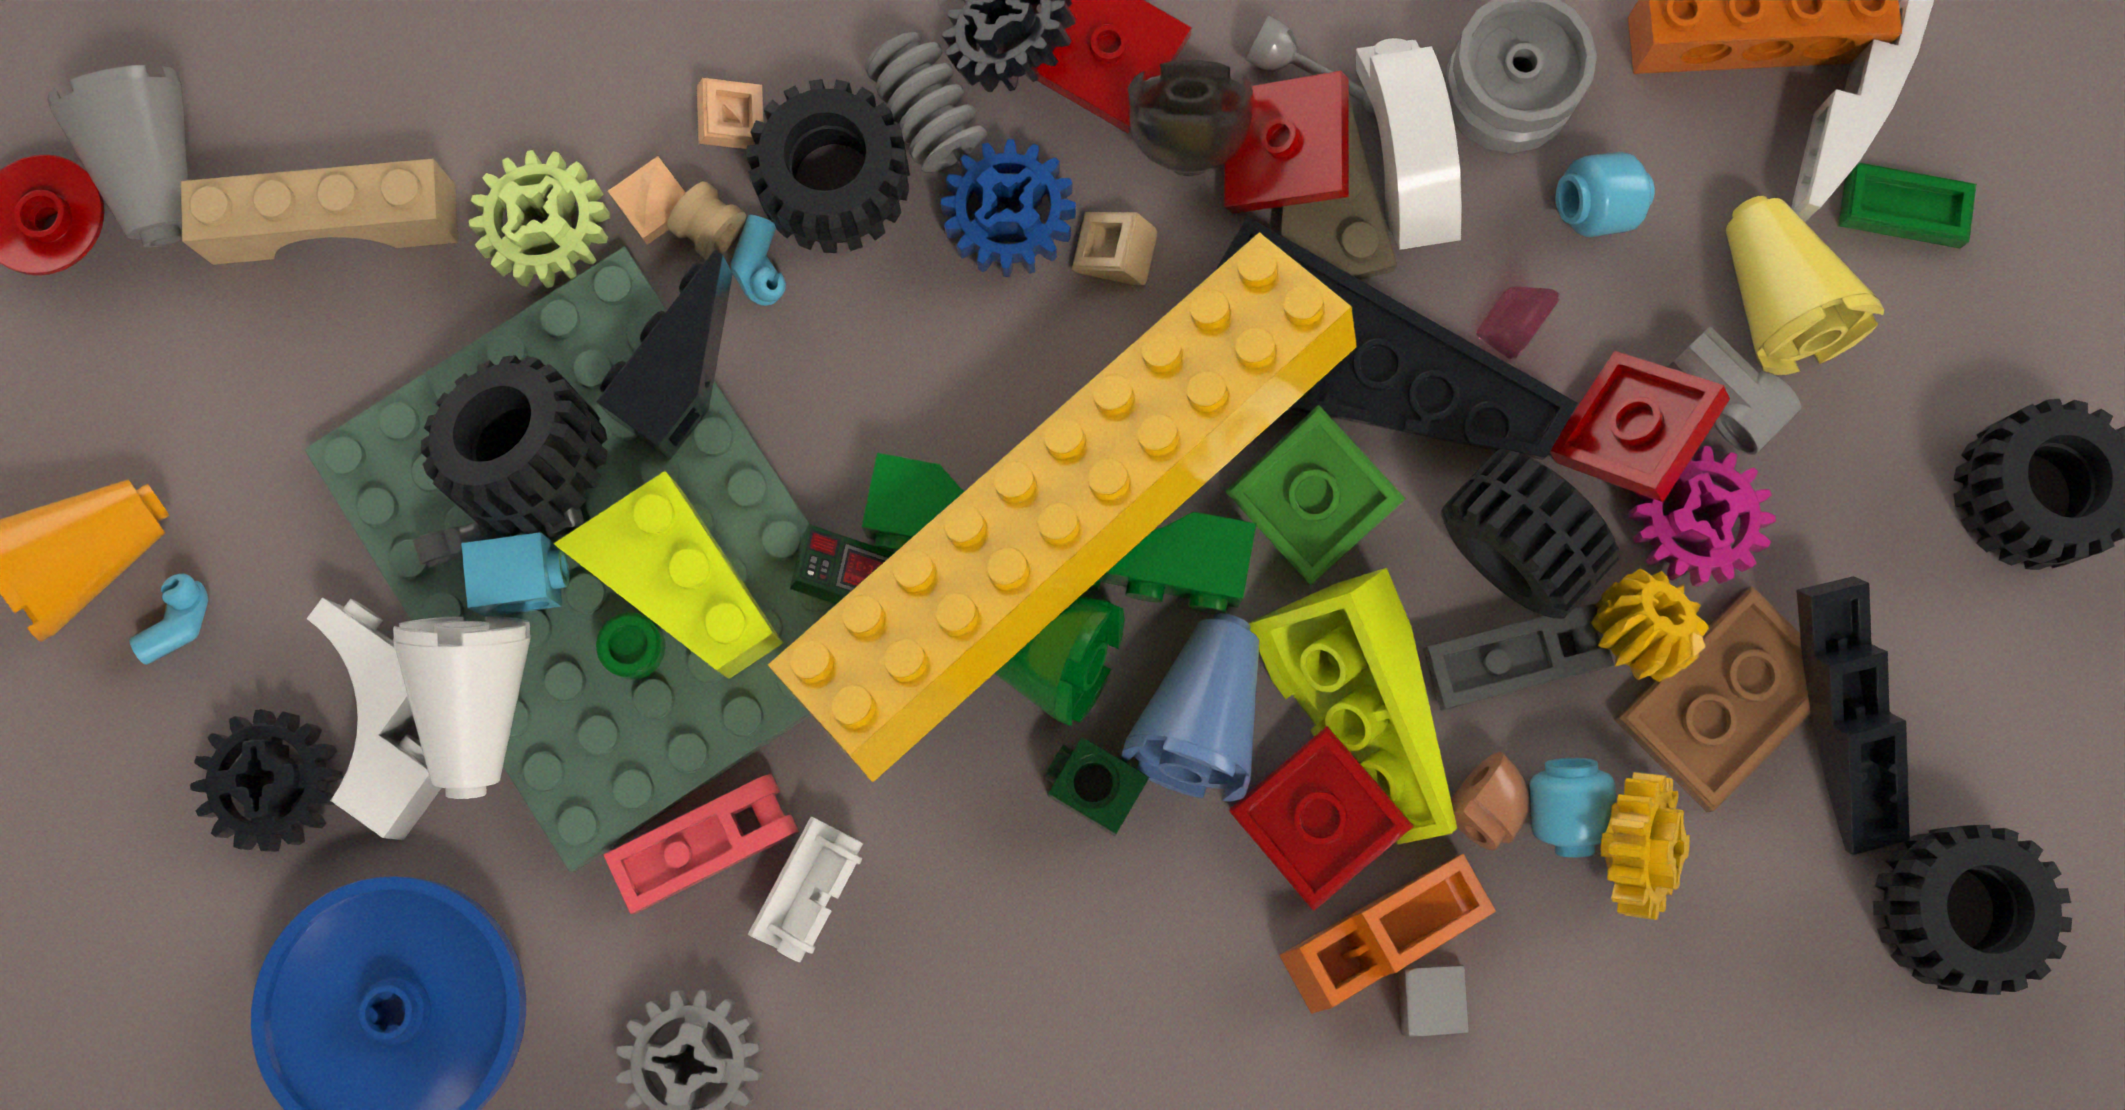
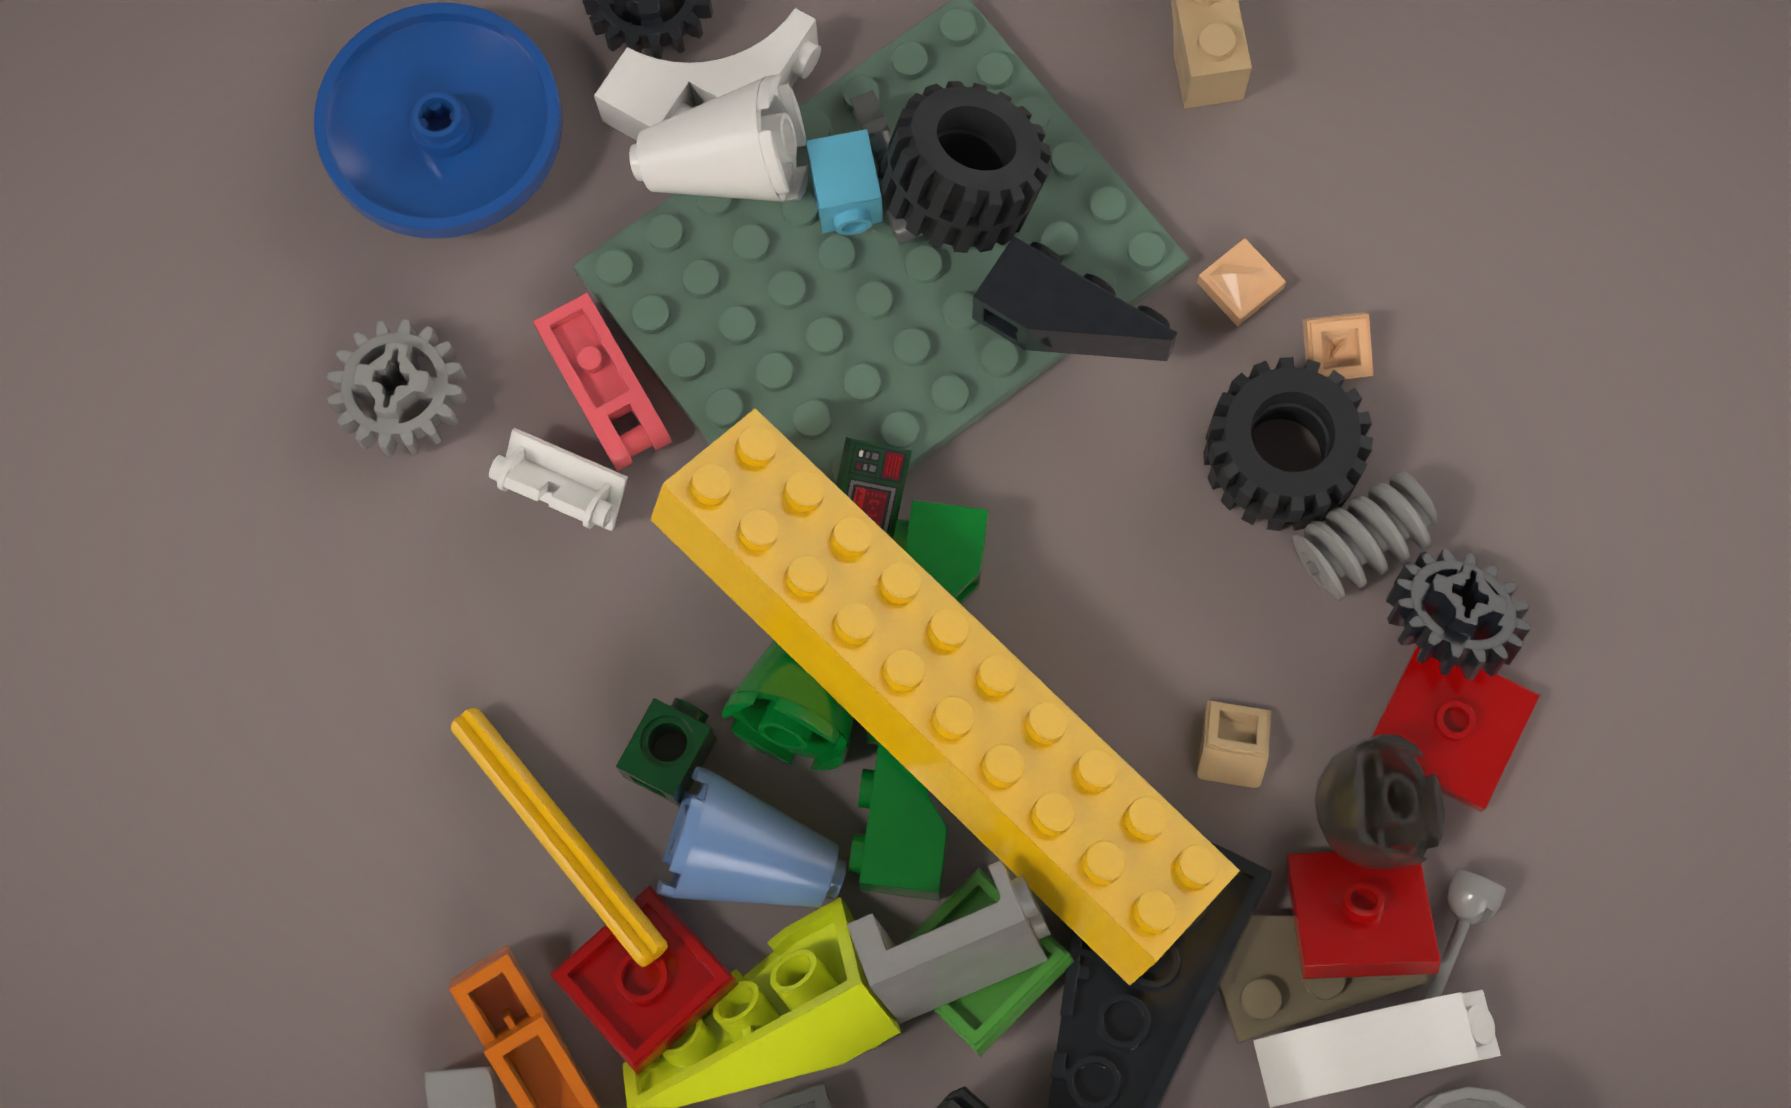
camera: 90 degrees right, 5 degrees down
(546, 192) = (1226, 196): yellowish green gear -> none
(630, 646) = (785, 297): green tile -> none
(675, 573) = (849, 329): neon yellow wedge -> none
(706, 220) = (1221, 333): tan wheel -> none
(752, 266) = (1180, 383): medium azure arm -> none
(992, 188) = (1279, 646): blue gear -> none
(1176, 899) = (559, 837): none -> yellow axle
(1329, 500) = (954, 956): none -> light grey panel

